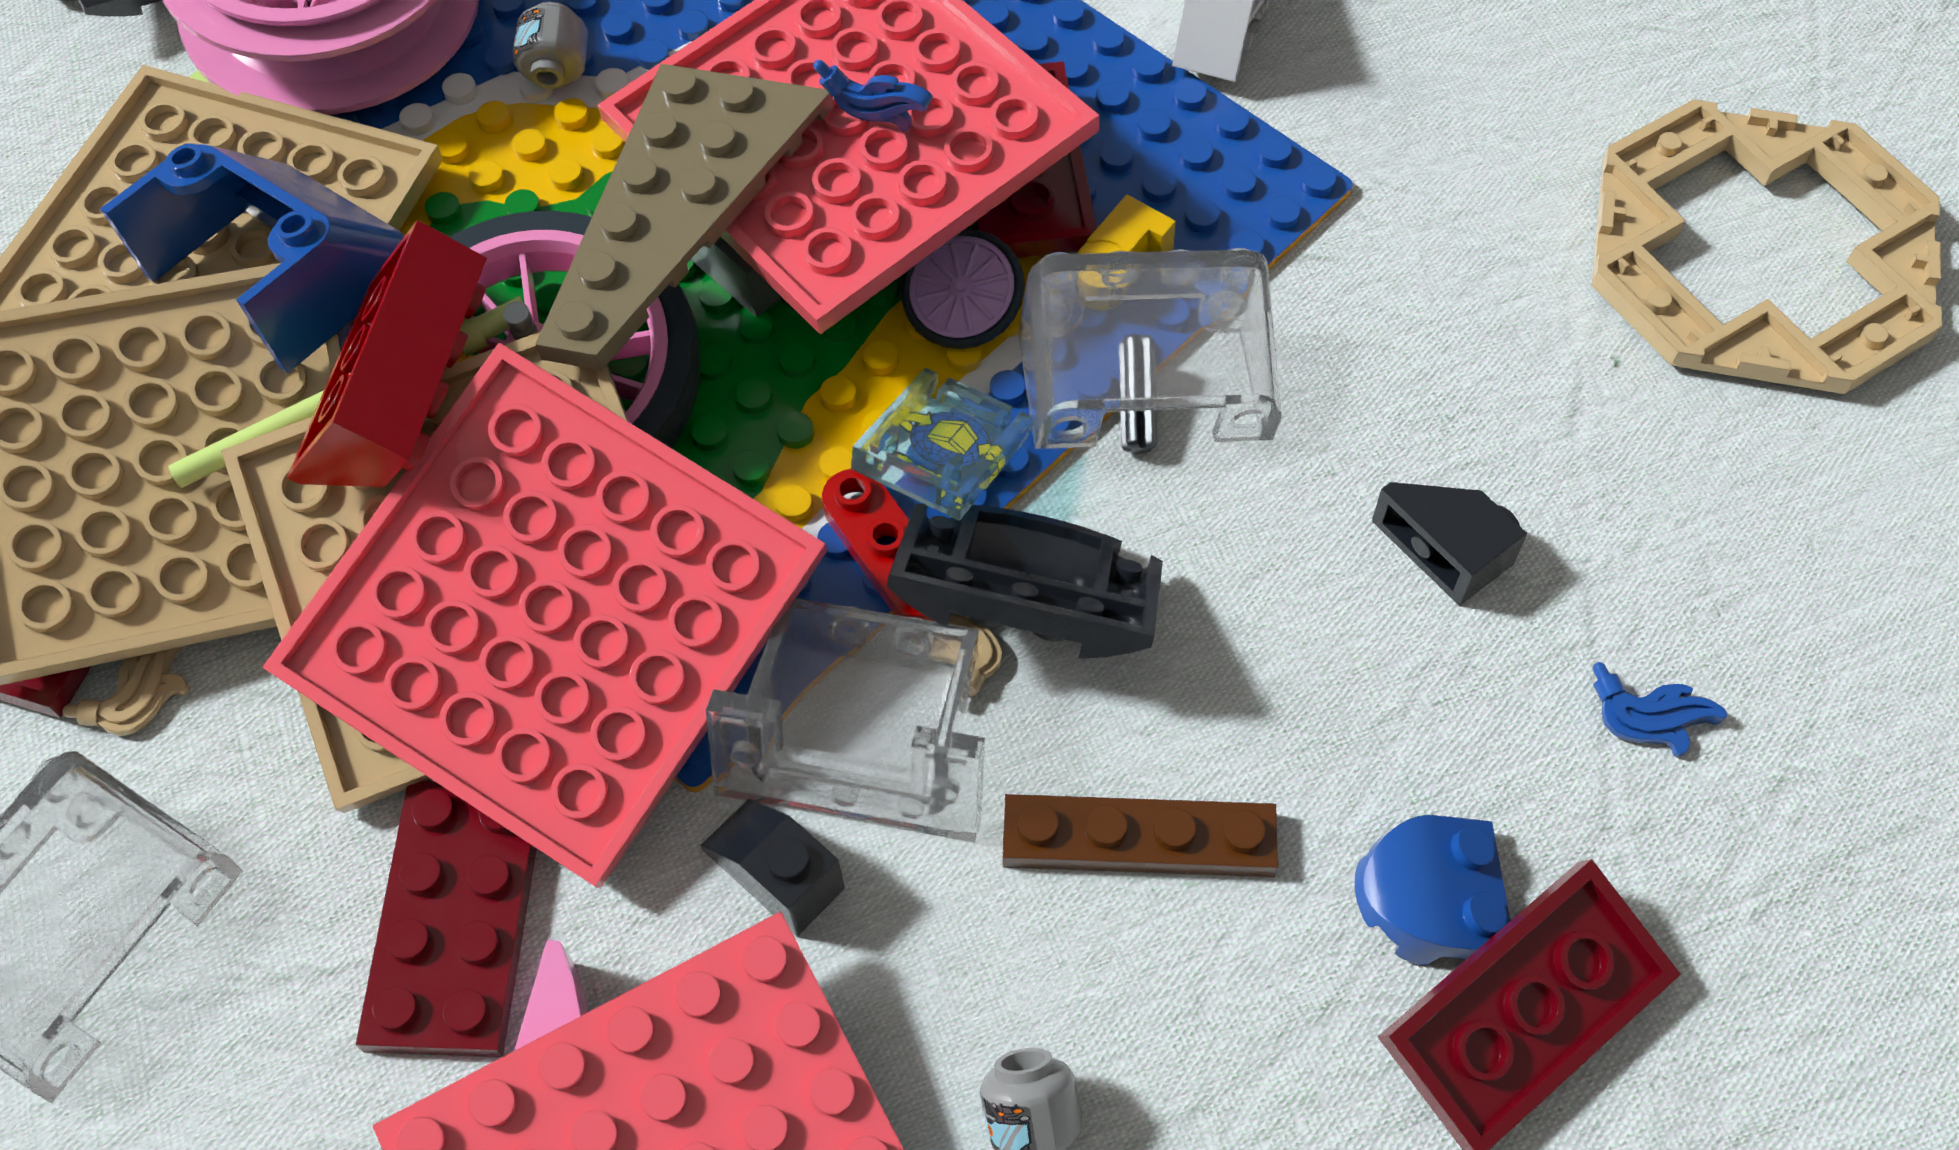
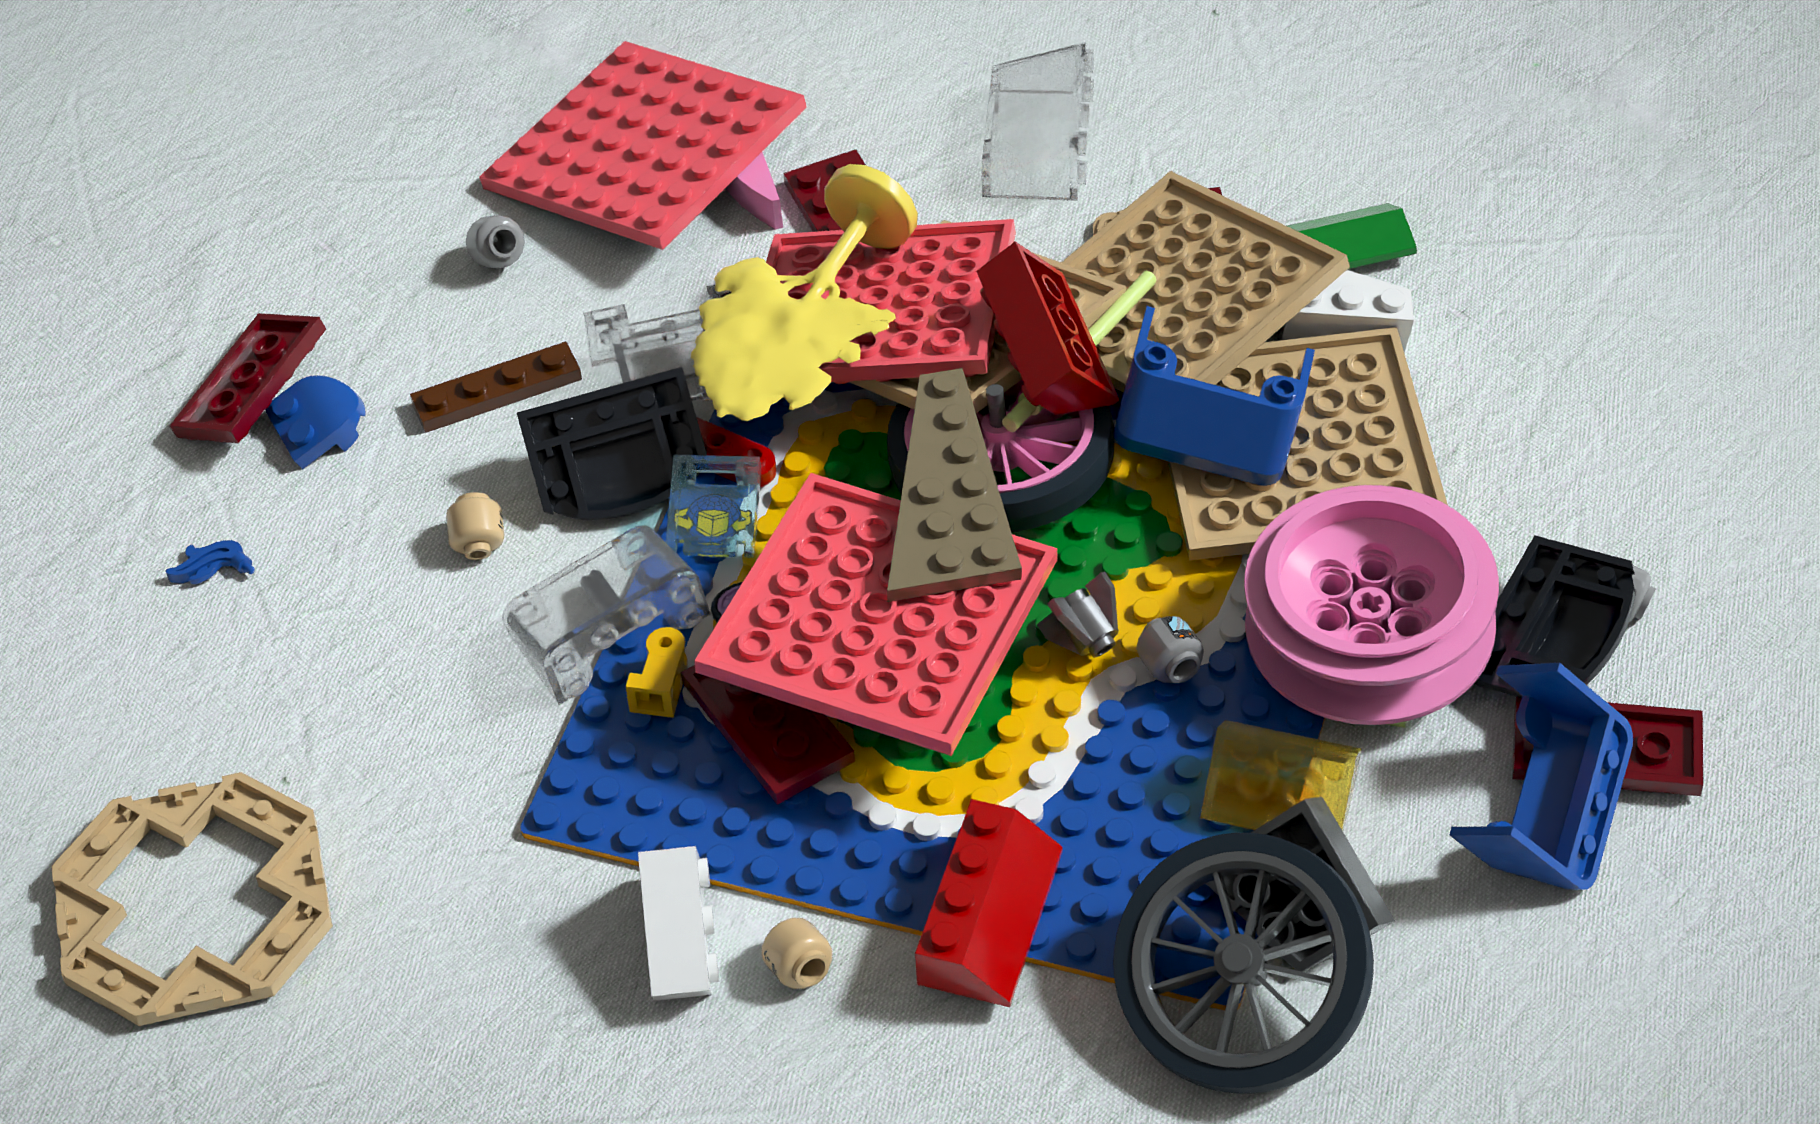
camera: 155 degrees right, 10 degrees down
(586, 93) = (1084, 620): none -> flat silver brick
(741, 547) = (770, 345): none -> light yellow plant
(777, 863) = (678, 282): black slope -> none
(877, 100) = (844, 588): blue piece -> none
(1265, 578) = (475, 525): none -> tan head
(1450, 534) = (365, 597): black slope -> none

